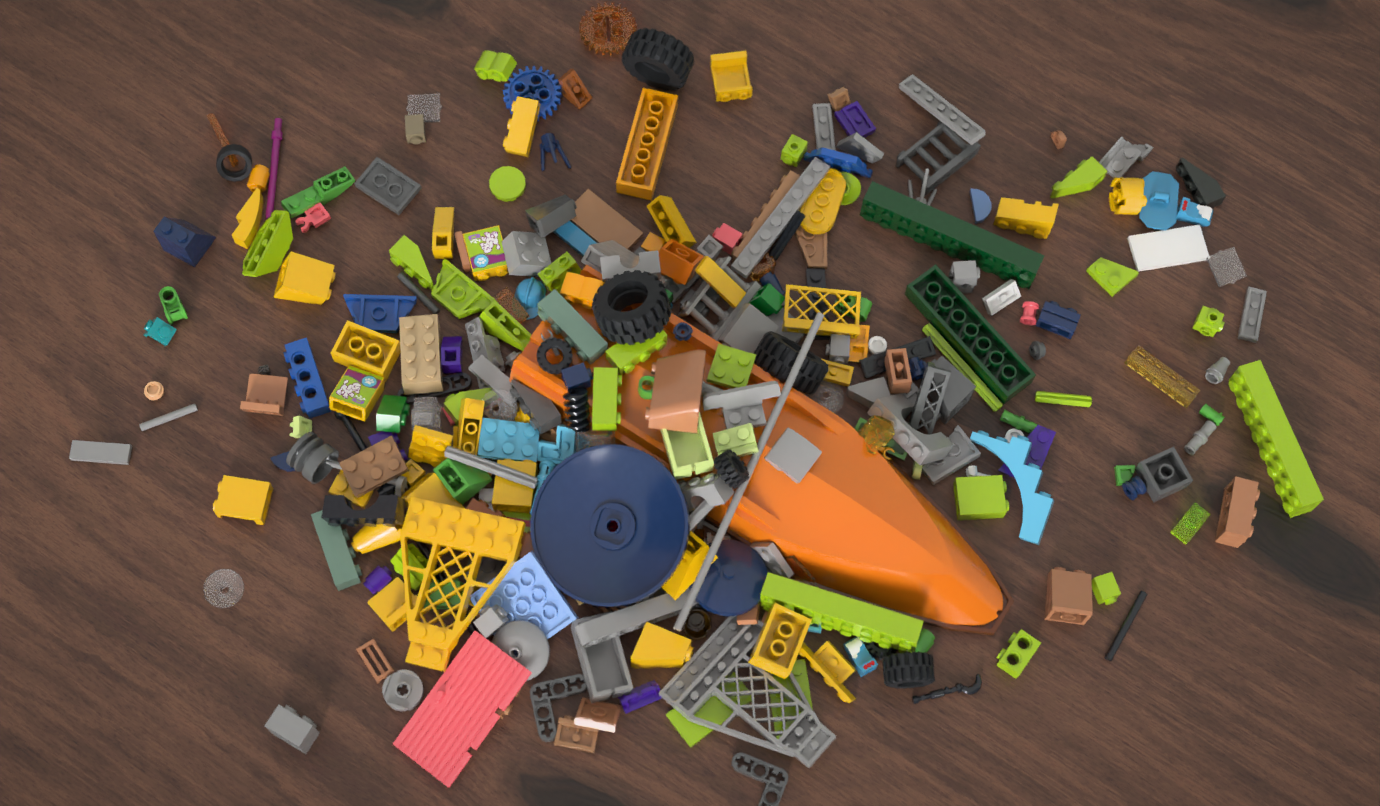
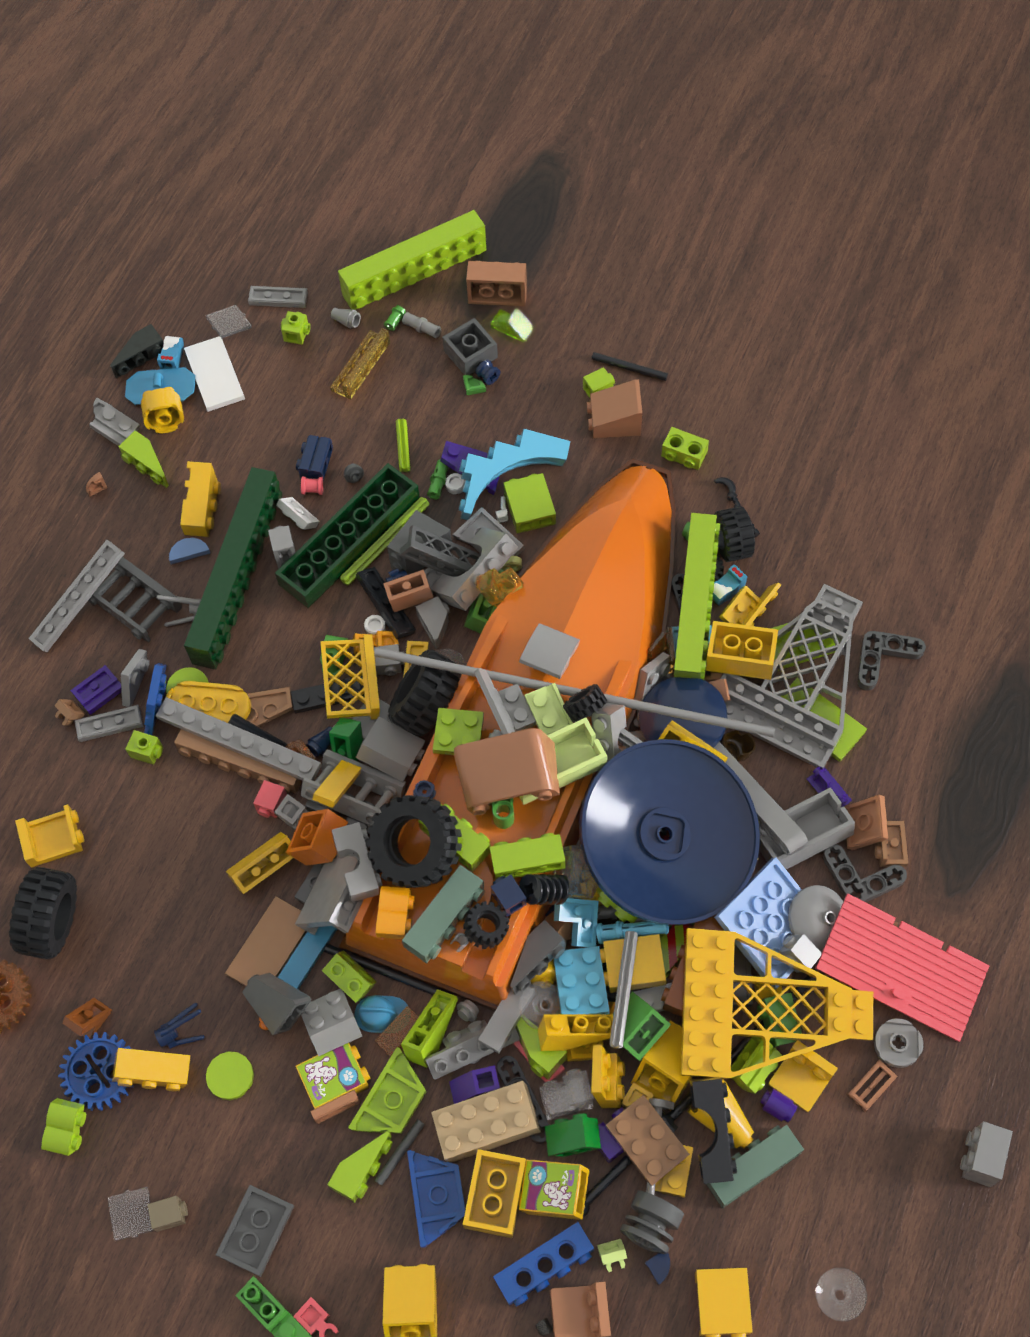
camera: 95 degrees left, 5 degrees down
(443, 233) = (311, 1137): yellow slope -> none
(647, 144) = (156, 911): light orange brick -> none
(653, 243) = (288, 882): light orange tile -> none
(660, 649) = (779, 771): yellow slope -> none
(1111, 275) = (254, 419): lime wing -> none

